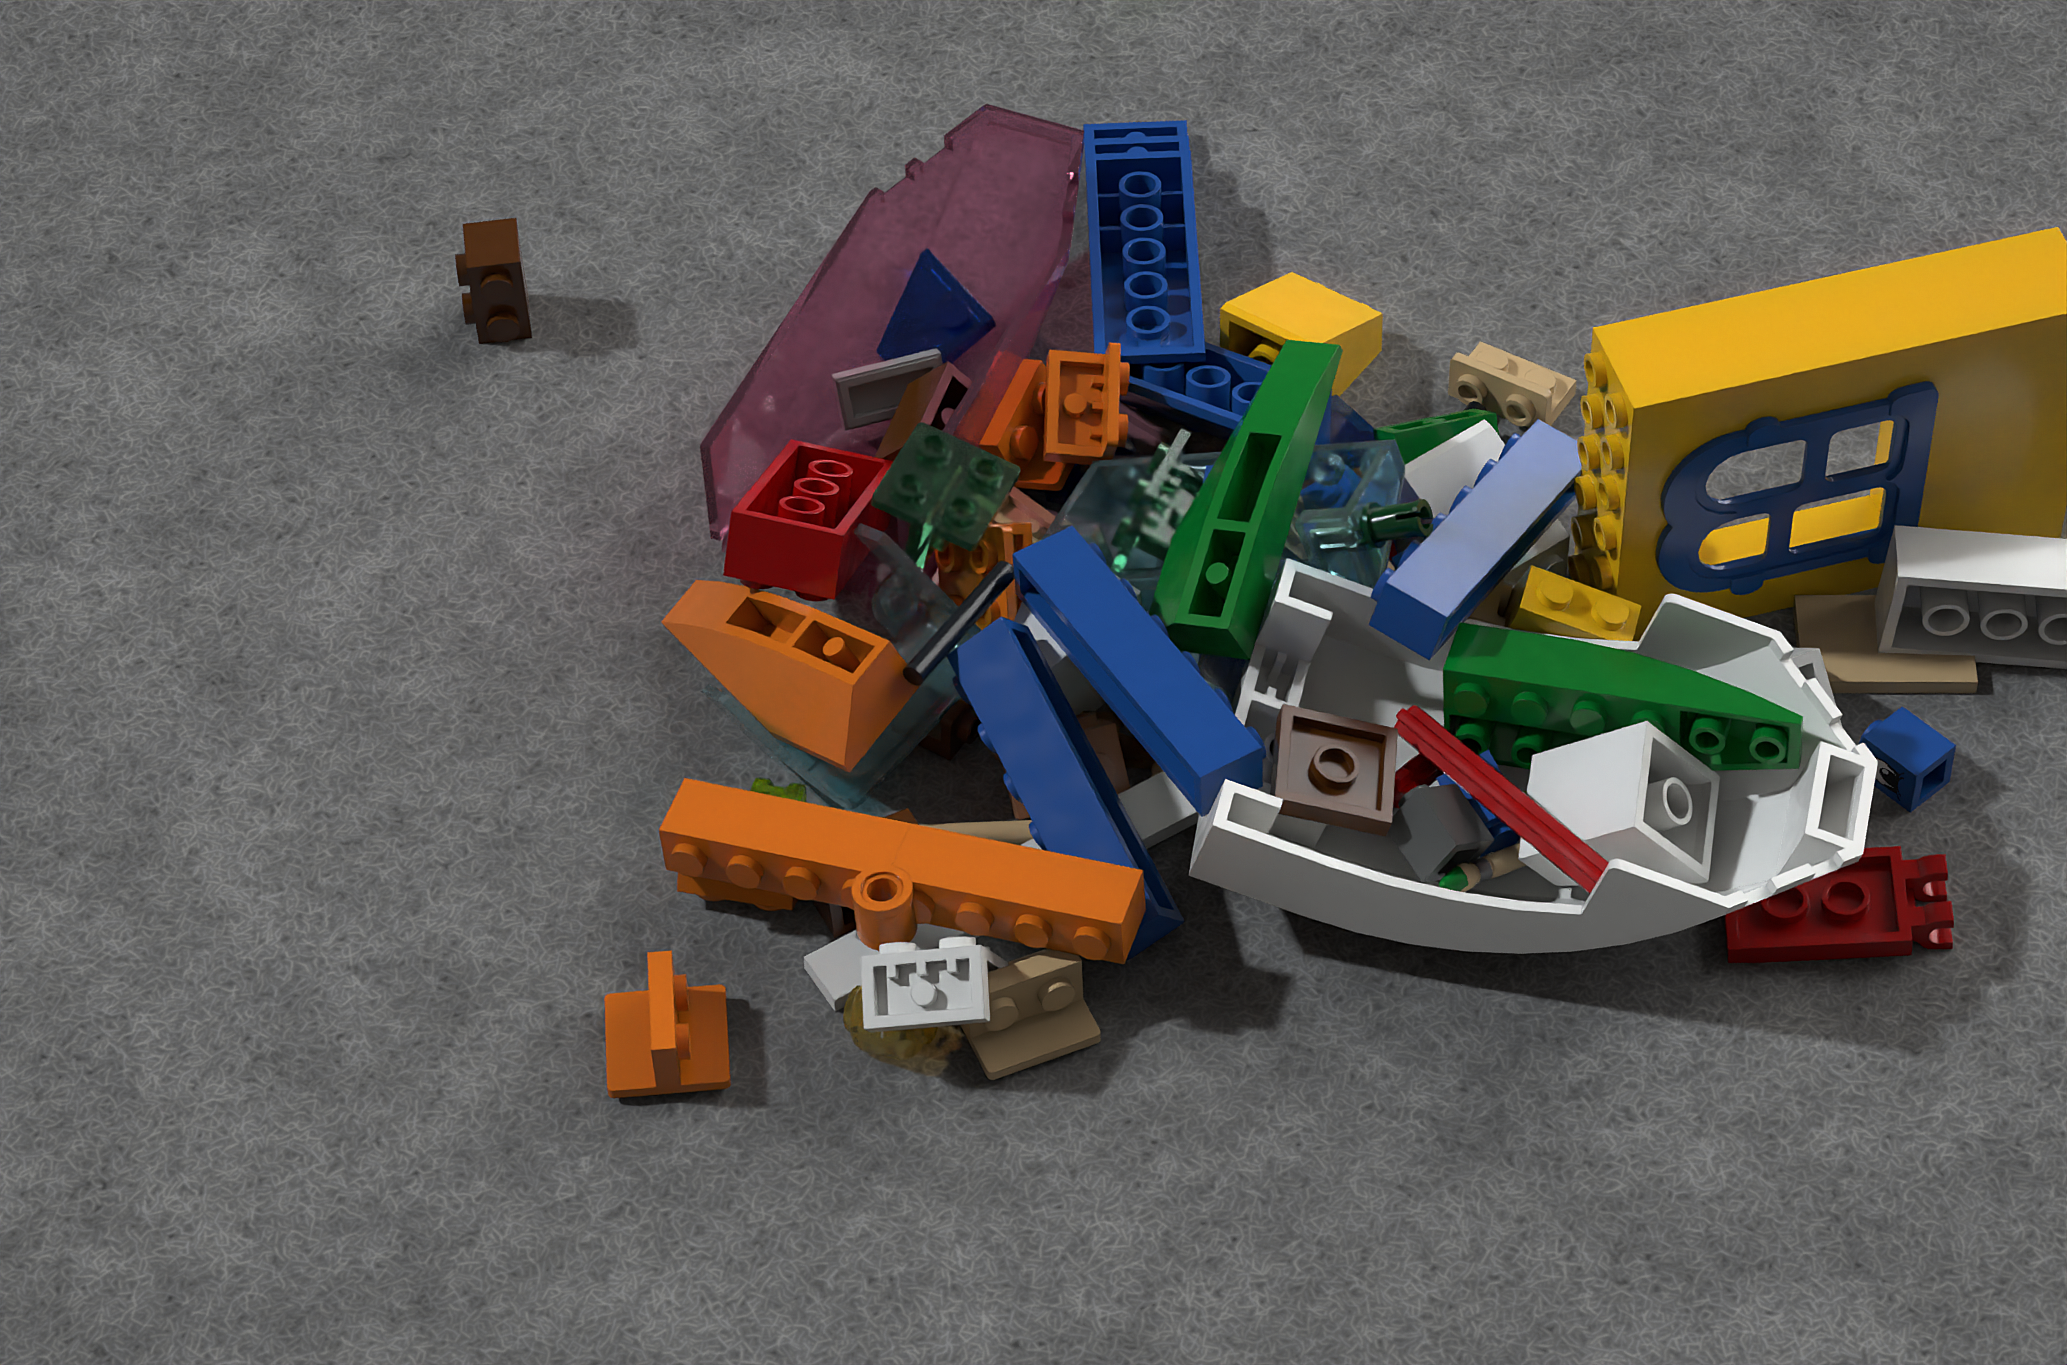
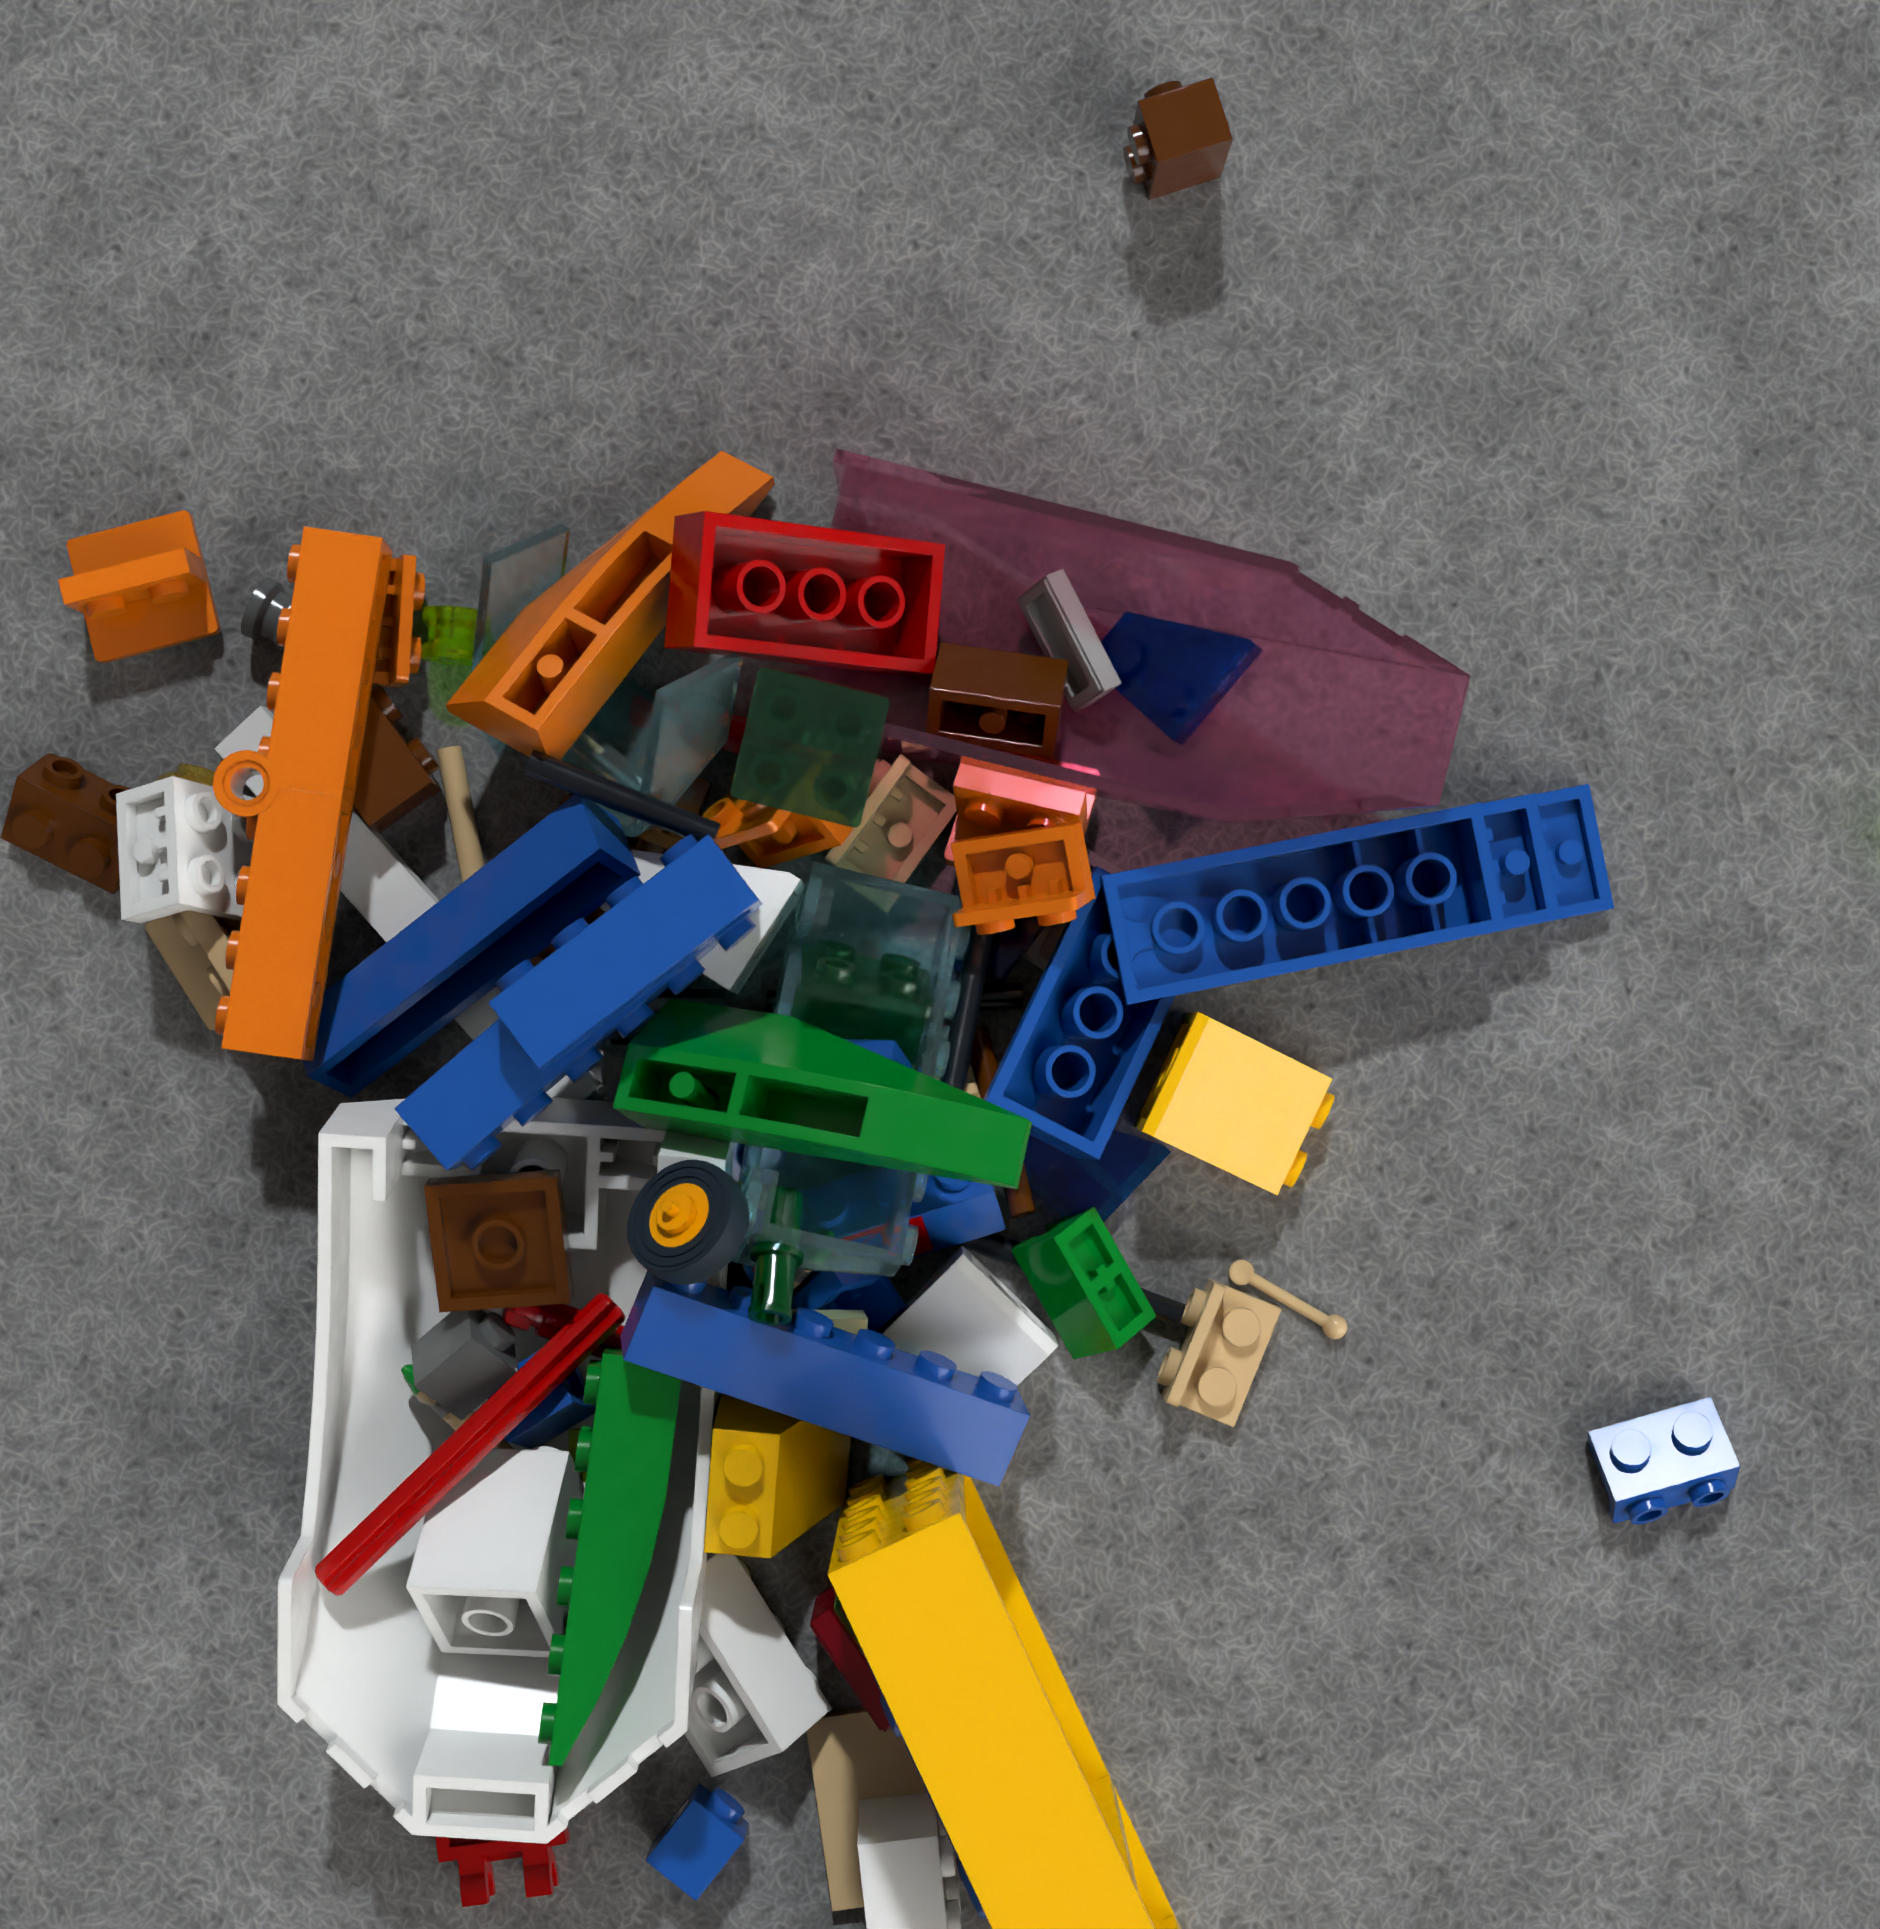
camera: 80 degrees right, 40 degrees up
(724, 933) = (263, 611): none -> dark grey wheel
(882, 1114) = (67, 819): none -> reddish brown bracket
(1095, 589) = (624, 951): none -> blue brick
(1334, 559) = (688, 1222): none -> black wheel
(1499, 321) = (1242, 1273): none -> tan hinge
(1638, 135) = (1664, 1461): none -> bracket
(1759, 592) = (839, 1640): none -> dark red tile

